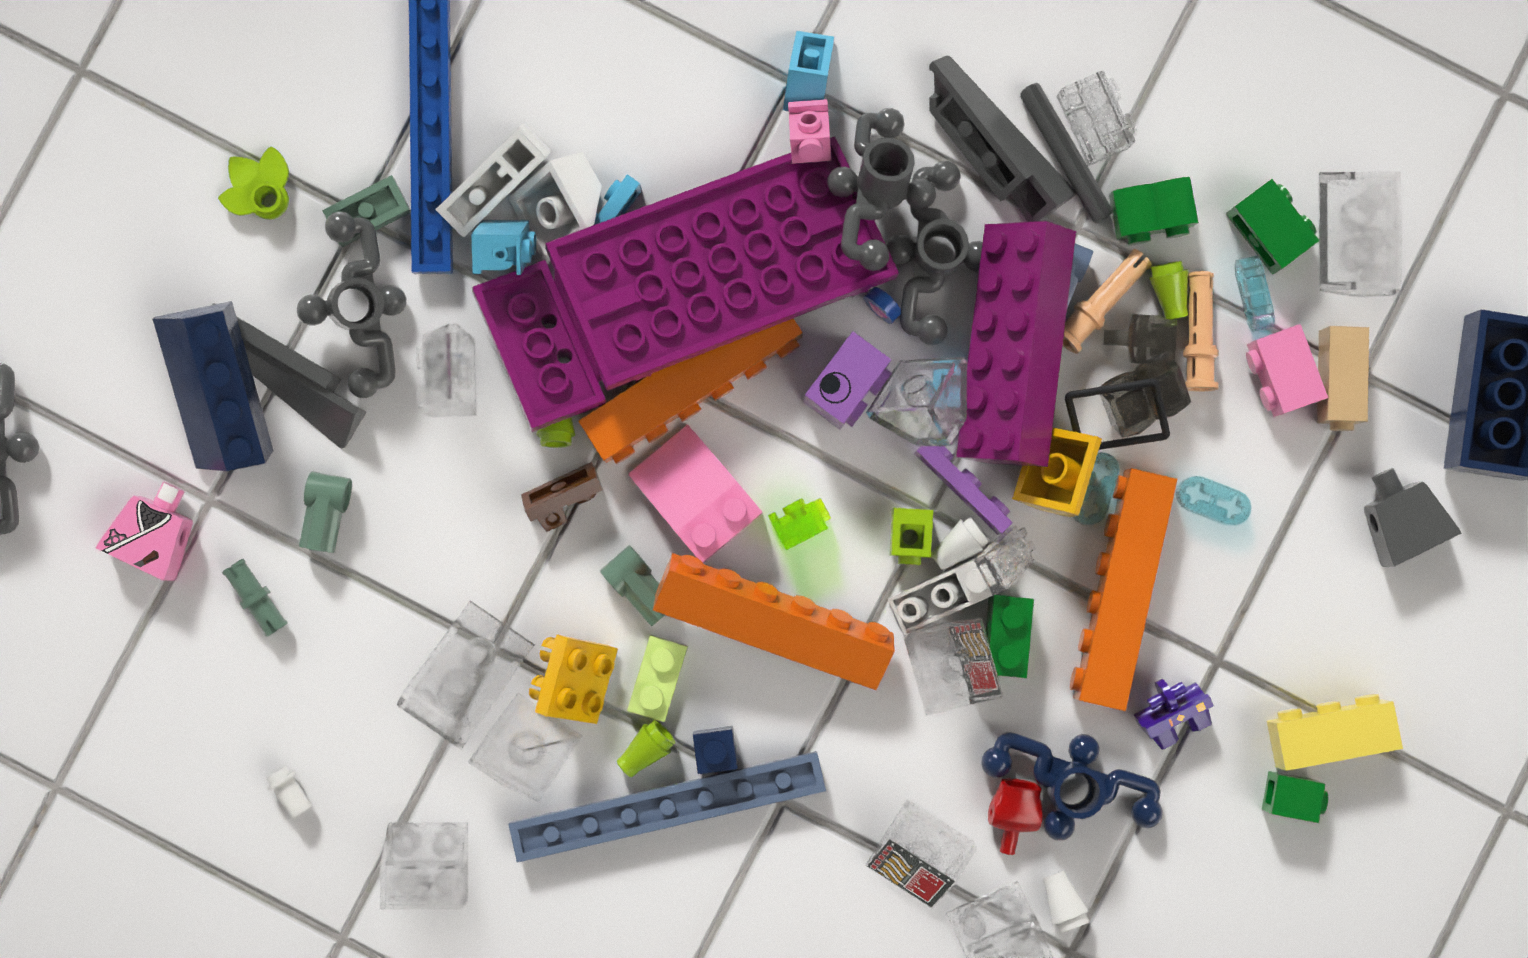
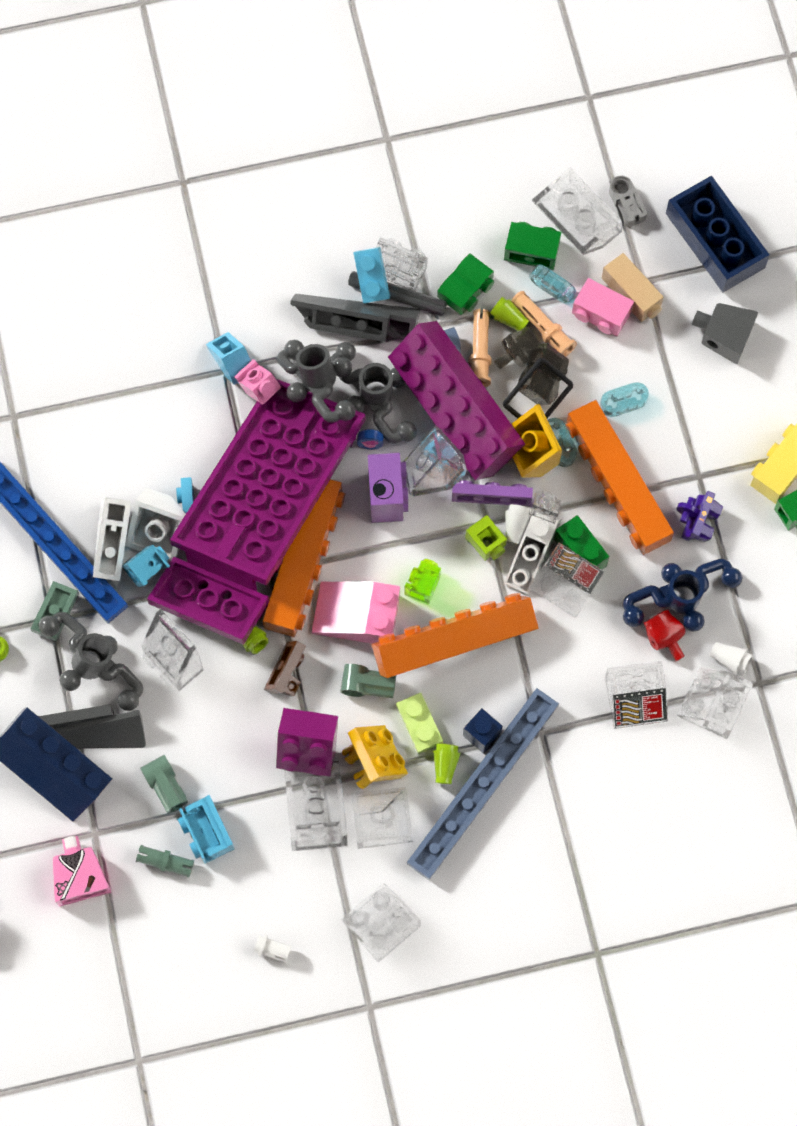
camera: 40 degrees left, 15 degrees down
(324, 601) = (206, 830): none -> medium azure hinge
(507, 603) = (306, 742): none -> magenta brick
(1052, 108) = (371, 275): none -> medium azure plate
(1433, 267) = (629, 202): none -> light grey piece

